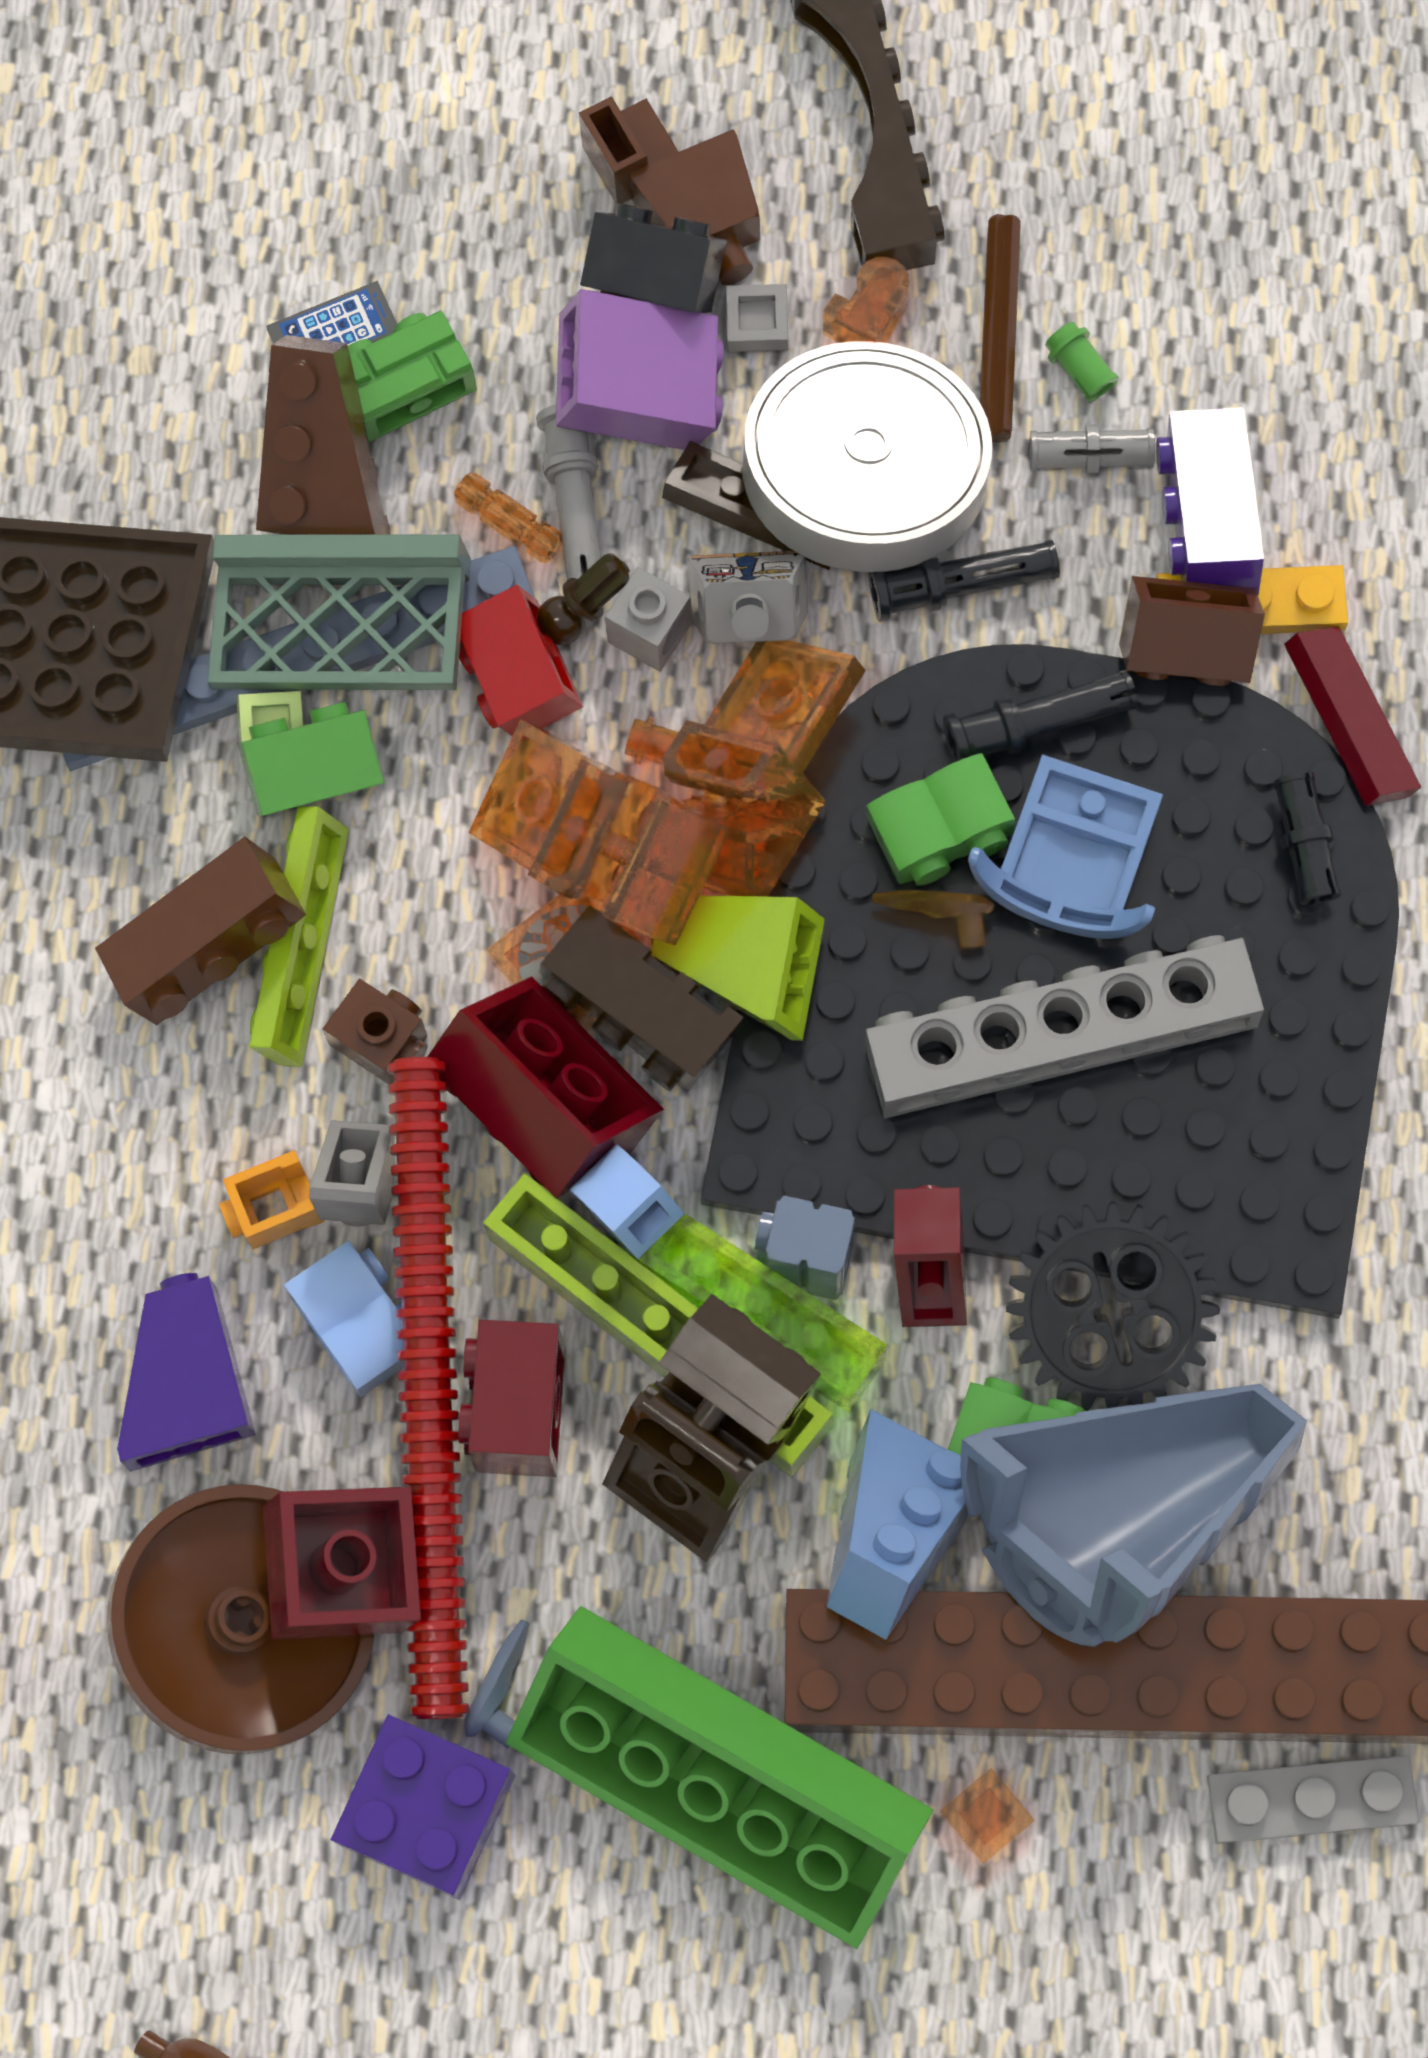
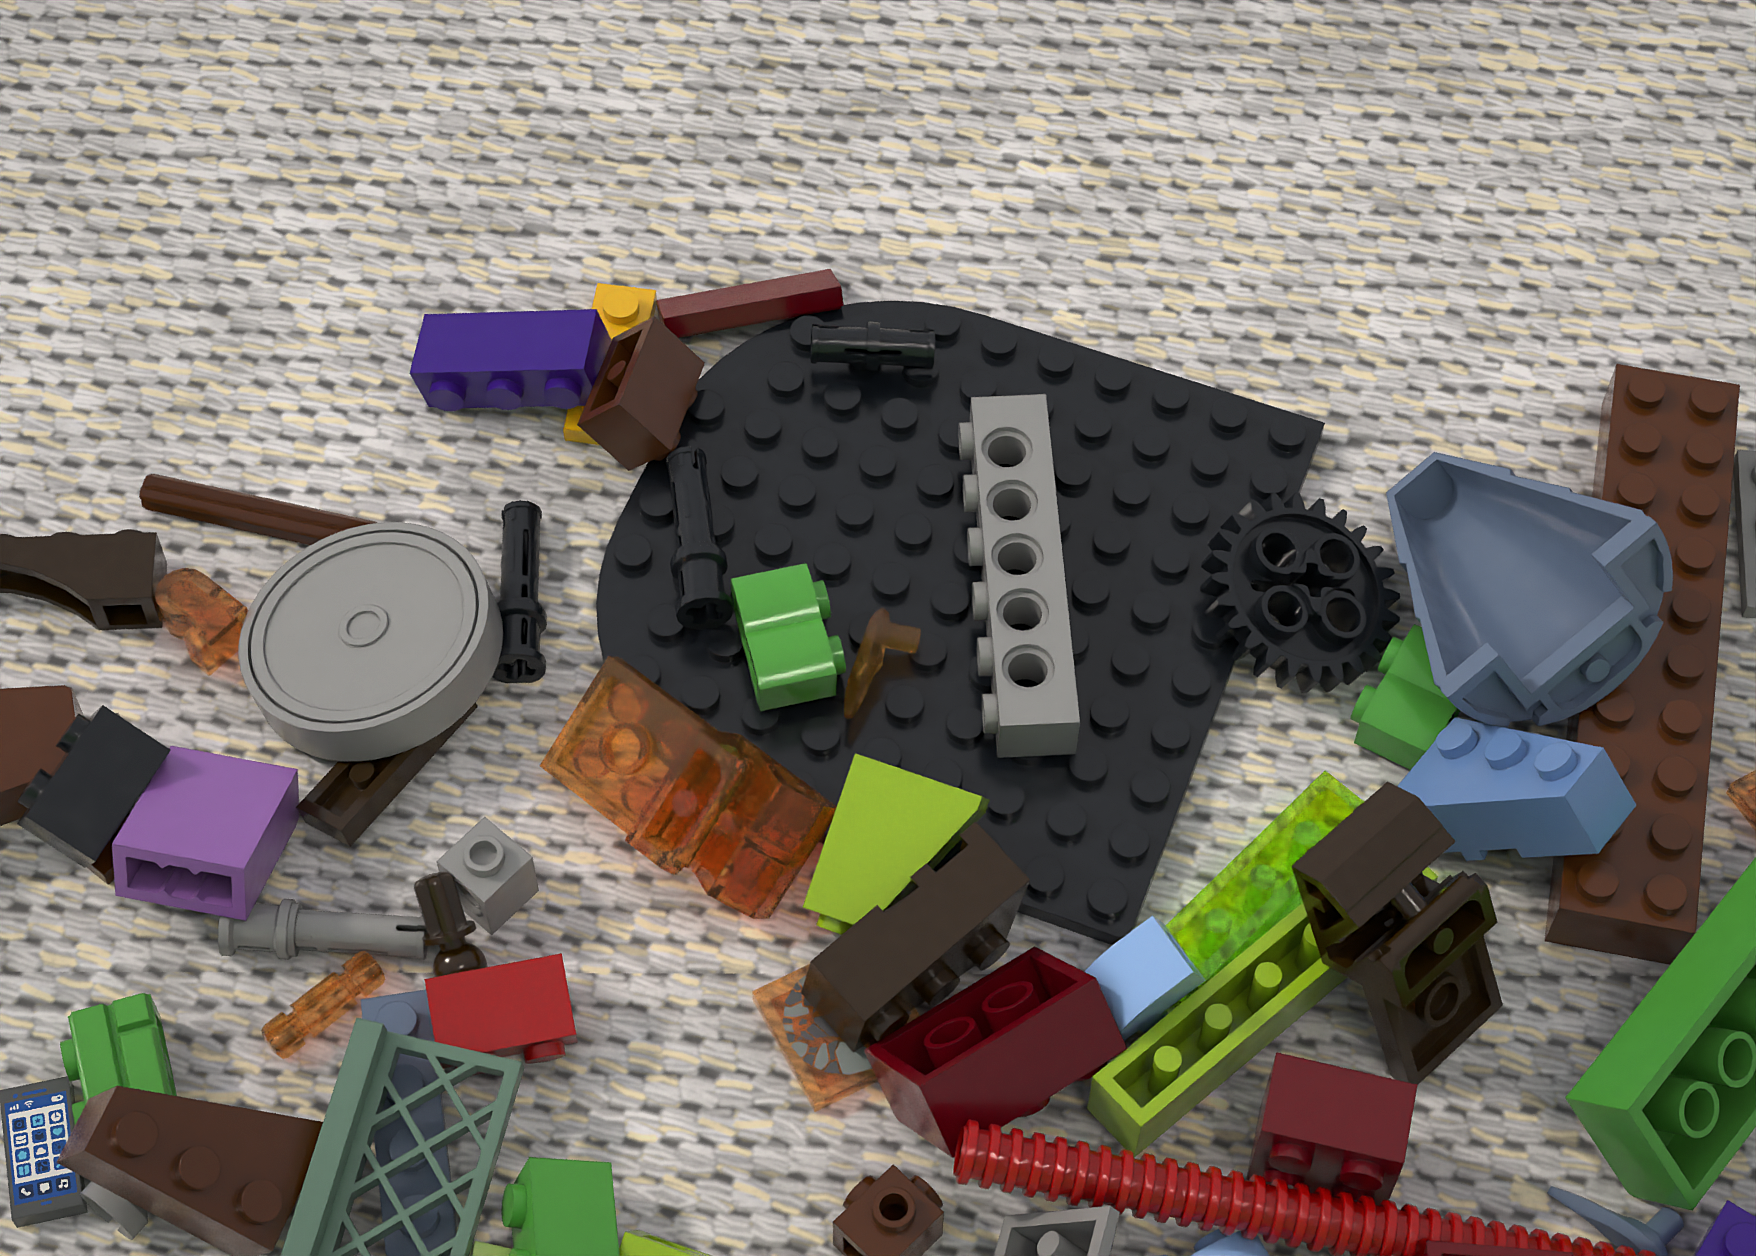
camera: 85 degrees left, 15 degrees down
(598, 833) = (725, 949): clear orange piece -> none
(648, 741) = (620, 904): clear orange pin -> none
(748, 596) = (494, 769): light grey torso -> none
(757, 317) = (179, 717): light grey plate -> none
(807, 1245) = (1207, 827): sand blue brick -> none
(930, 1256) = (1228, 727): dark red slope -> none
(1074, 853) = (847, 526): medium blue piece -> none
(1081, 361) = (321, 451): bright green pin -> none
(1094, 448) = (415, 460): light grey pin -> none

